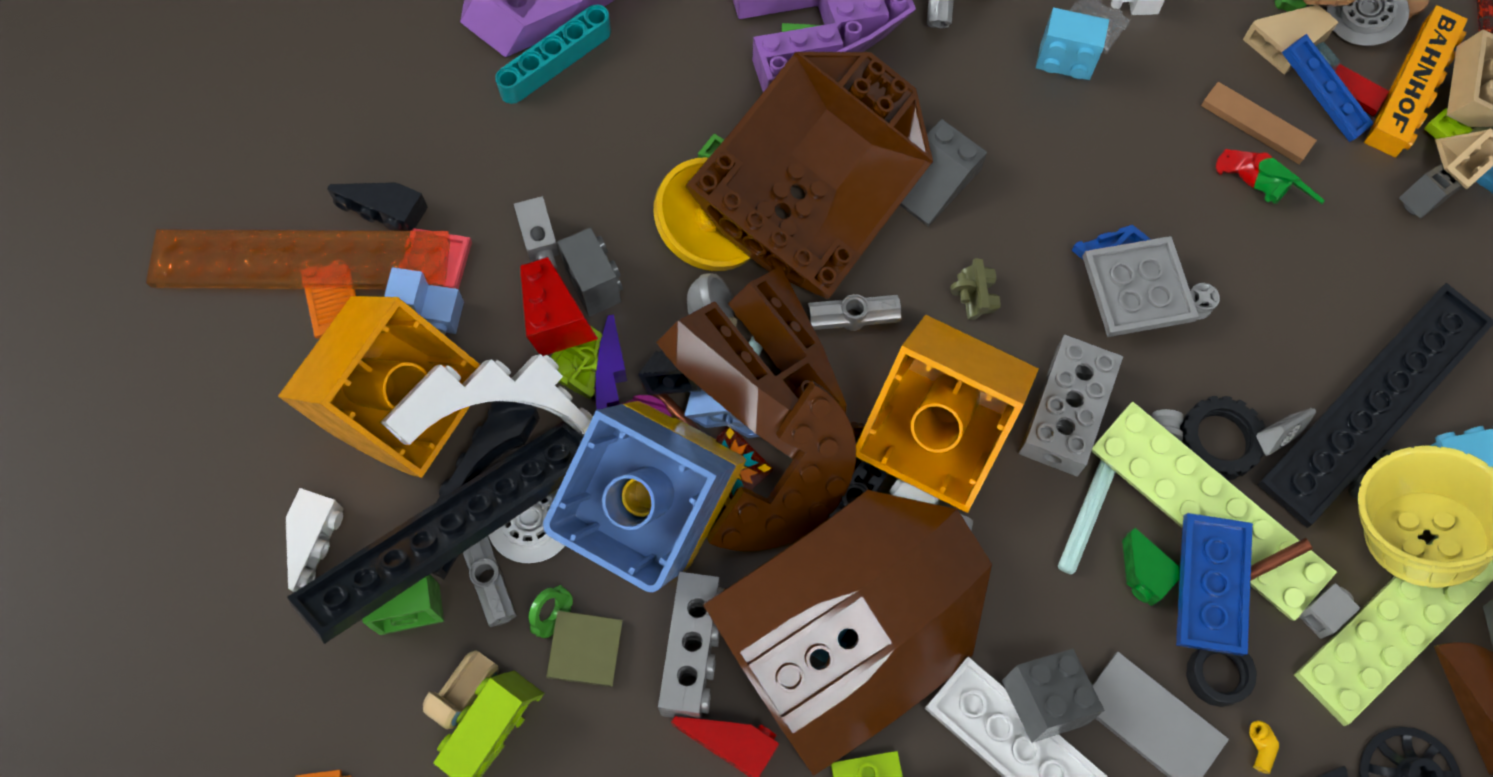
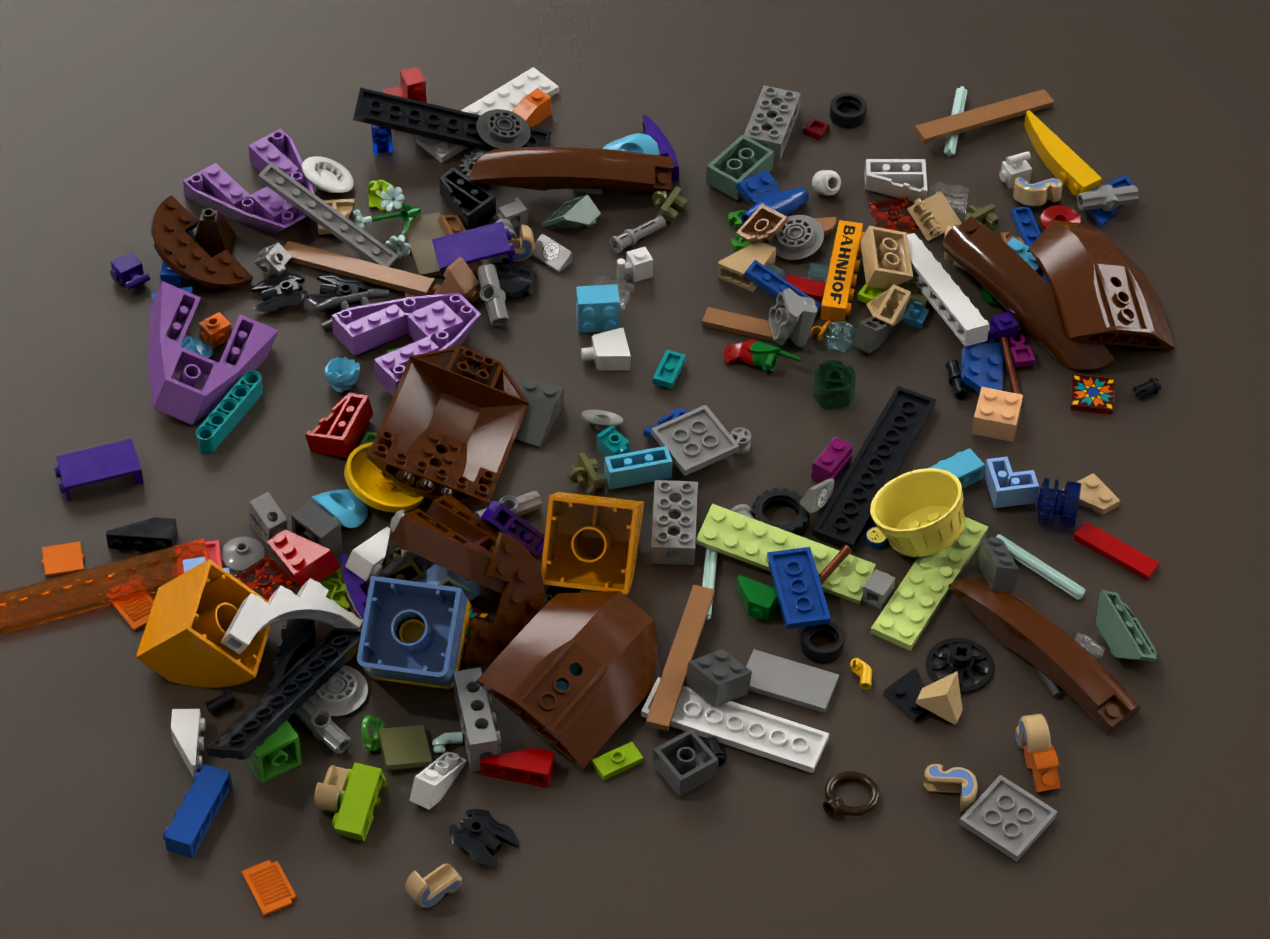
camera: 20 degrees left, 20 degrees down
(264, 667) = (197, 811): none -> blue brick
(273, 202) = (62, 559): none -> orange piece
(364, 84) = (97, 465): none -> dark purple panel
(374, 490) = (220, 702): none -> black pin
(496, 276) = (241, 553): none -> light grey dish
(498, 317) = (265, 577): none -> clear red tile
(607, 720) = (436, 779): none -> white slope
(634, 242) = (343, 506): none -> medium azure hat
(637, 336) = (368, 557): none -> white slope
(640, 654) = (446, 738): none -> light aqua arm
(683, 121) = (342, 428): none -> red wedge
(712, 41) = (342, 373): none -> medium azure hair
(849, 348) = (508, 522): none -> dark purple slope
(1008, 639) = (679, 656): none -> medium nougat tile
(1022, 262) = (612, 442): none -> teal brick
(1024, 209) = (601, 418): none -> light grey dish
(1048, 303) = (638, 467): none -> medium azure brick
(1066, 109) = (609, 351): none -> white torso
(1137, 160) = (669, 369): none -> teal plate
(1319, 377) = (832, 460): none -> magenta brick
(1330, 136) = (792, 318): none -> light grey piece
(1345, 518) = (875, 538): none -> tile
(1358, 255) = (834, 384): none -> clear green brick
(1360, 160) = (819, 330): none -> light orange hand
(1383, 72) = (818, 272): none -> clear light blue tile
(1383, 183) = (838, 340): none -> clear light blue piece

